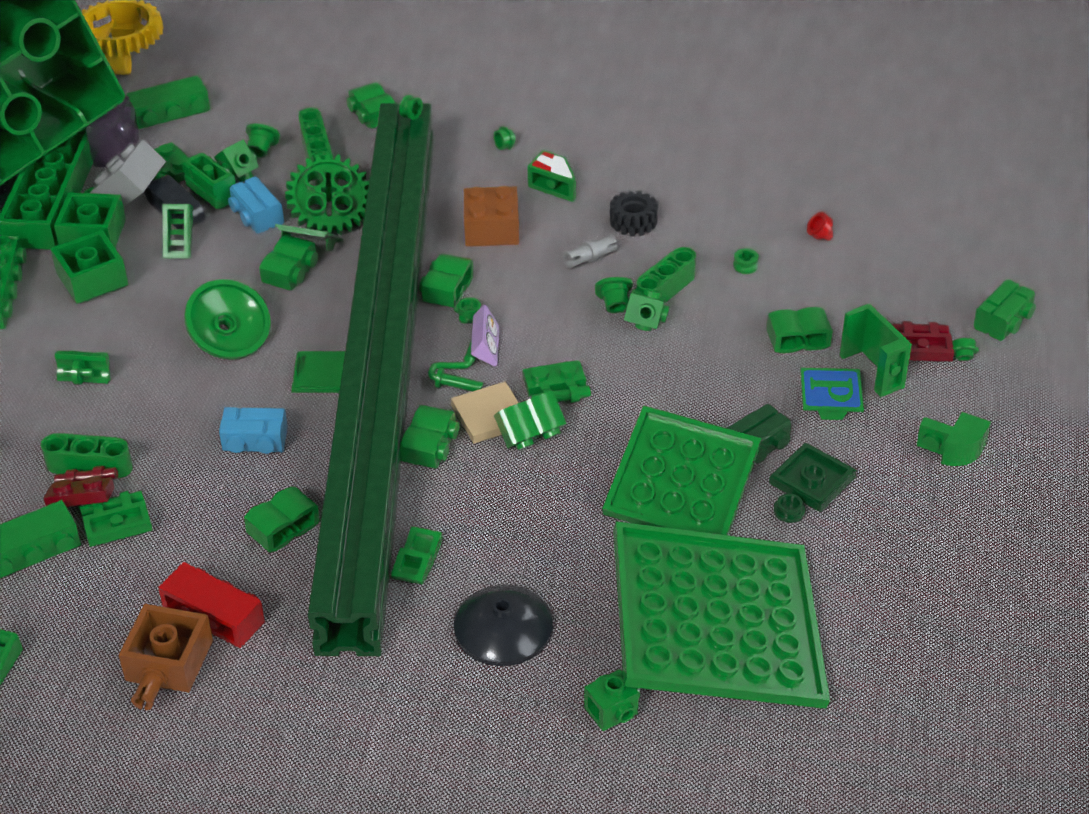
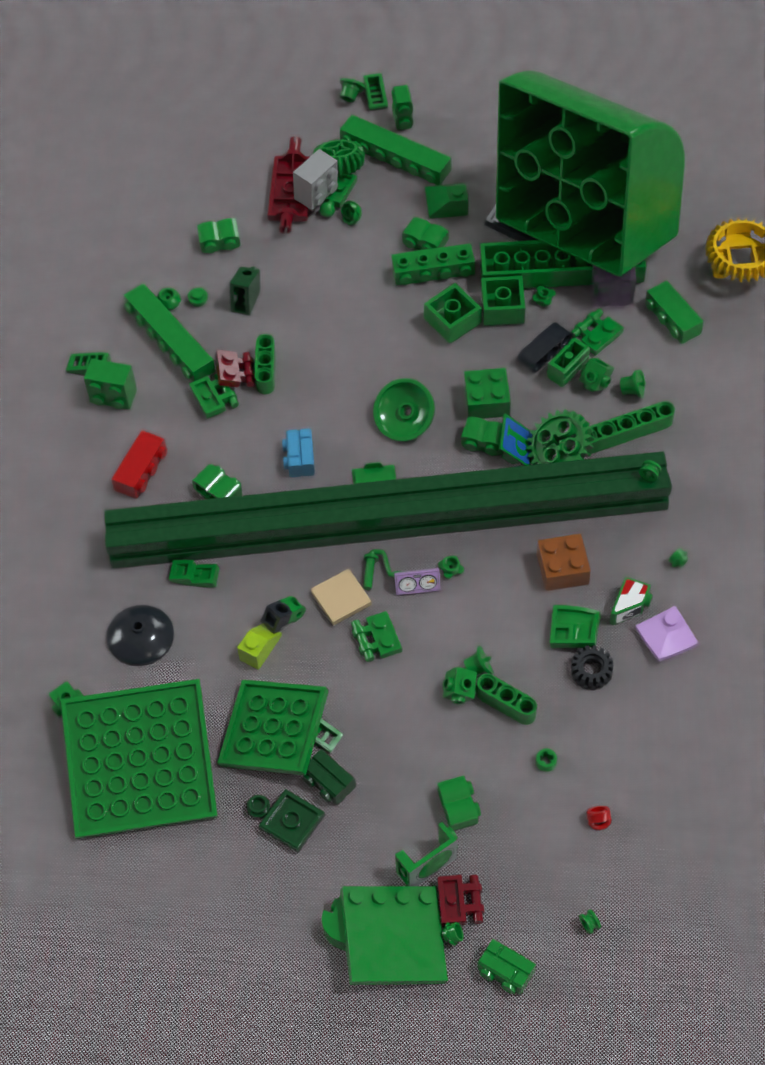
camera: 85 degrees right, 15 degrees up
(55, 621) = (110, 384): none -> green brick
(82, 367) = (348, 337): green hips -> none
(130, 172) = (554, 307): light grey brick -> none
(164, 651) = (94, 447): dark orange brick -> none
(167, 211) = (517, 351): green slope -> none
(226, 252) = (487, 393): none -> green brick
(255, 205) = (552, 396): dark azure brick -> none
(366, 102) = (702, 453): green brick -> none
(429, 436) = (305, 560): green brick -> none
(446, 280) = (480, 544): green brick -> none
(512, 458) = (282, 613): none -> black leg
(530, 420) = (323, 621): green brick -> none
(552, 491) = (257, 645): none -> lime slope
(579, 219) = (574, 627): none -> green plate
(590, 251) = (535, 640): light grey pin -> none
(599, 159) = (667, 634): none -> lavender plate
(831, 391) = (386, 829): piece -> none
(947, 245) = (589, 921): none -> green bush
(974, 390) = (393, 935): none -> green plate

